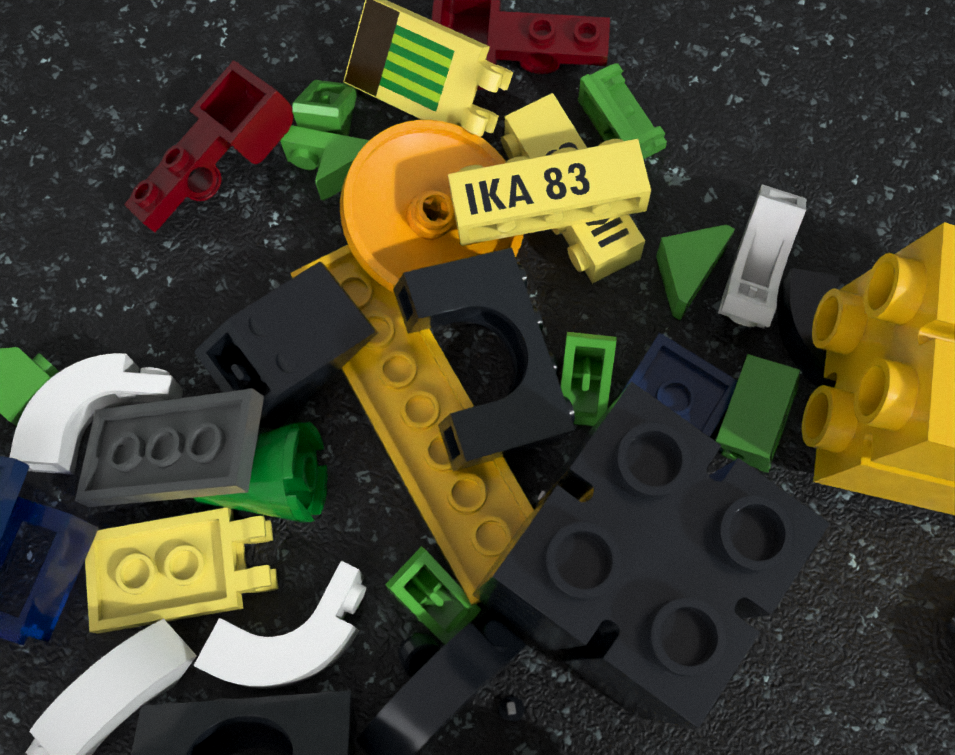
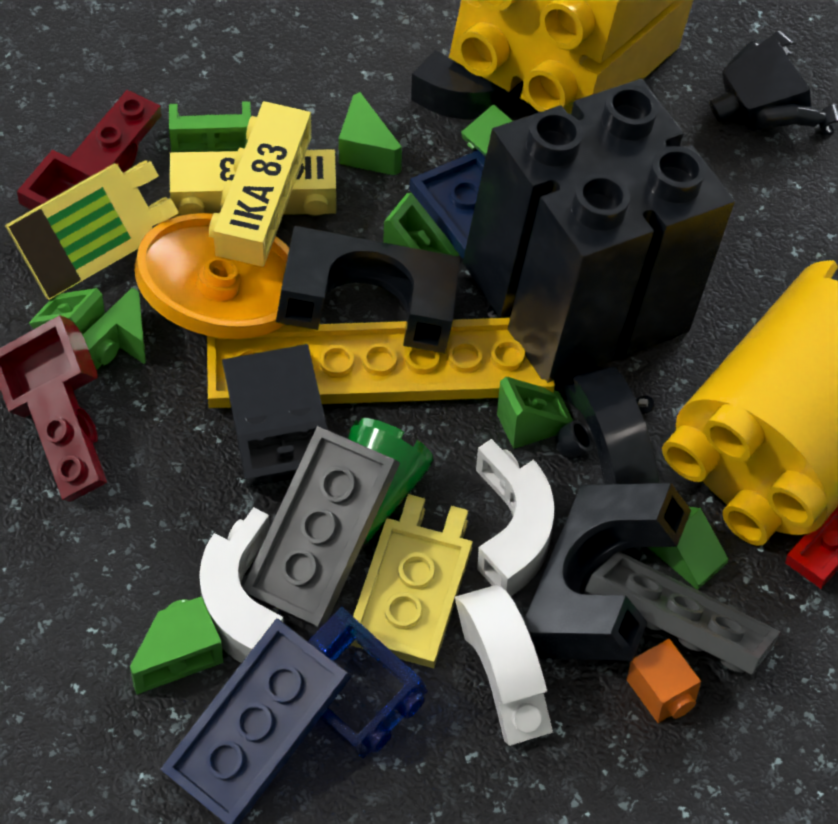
camera: 70 degrees left, 15 degrees down
(761, 257) = (397, 101): white arch -> none

